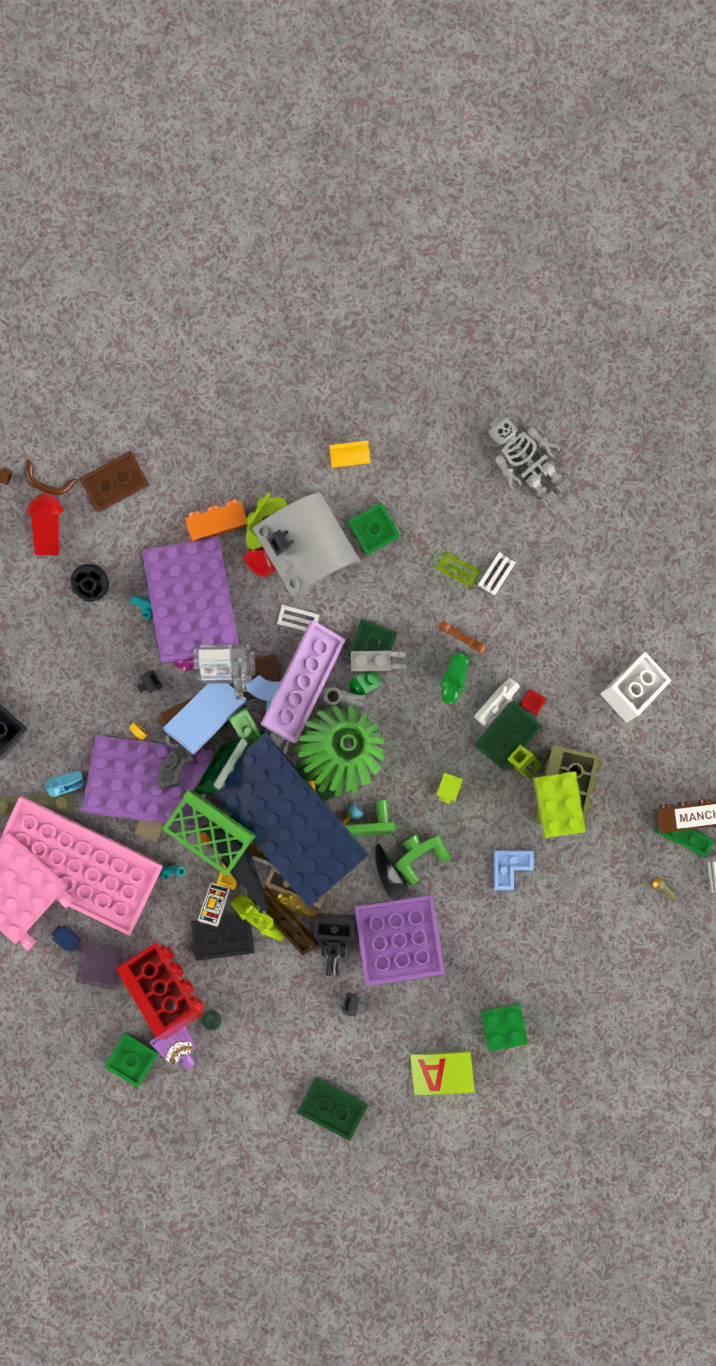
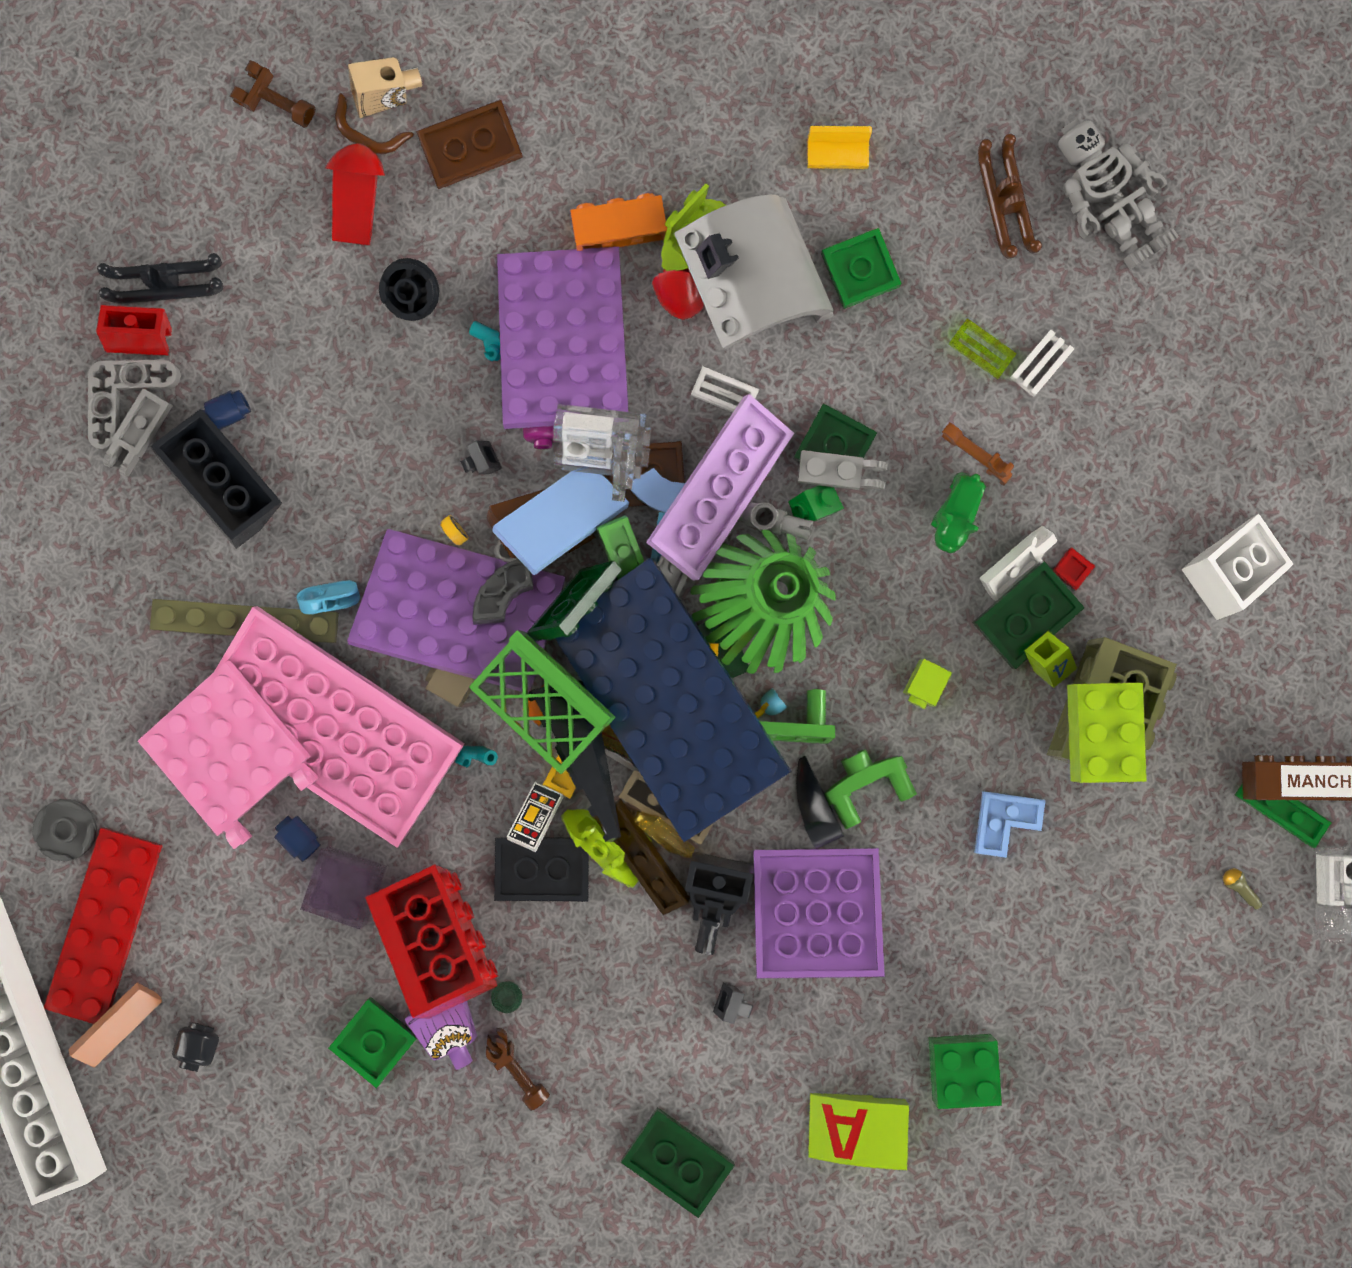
camera: 15 degrees right, 0 degrees up
(20, 1077) = (195, 1046): none -> black head
(47, 457) = (380, 85): none -> tan torso
(237, 1079) = (504, 1056): none -> reddish brown bar
(461, 471) = (1006, 198): none -> reddish brown piece

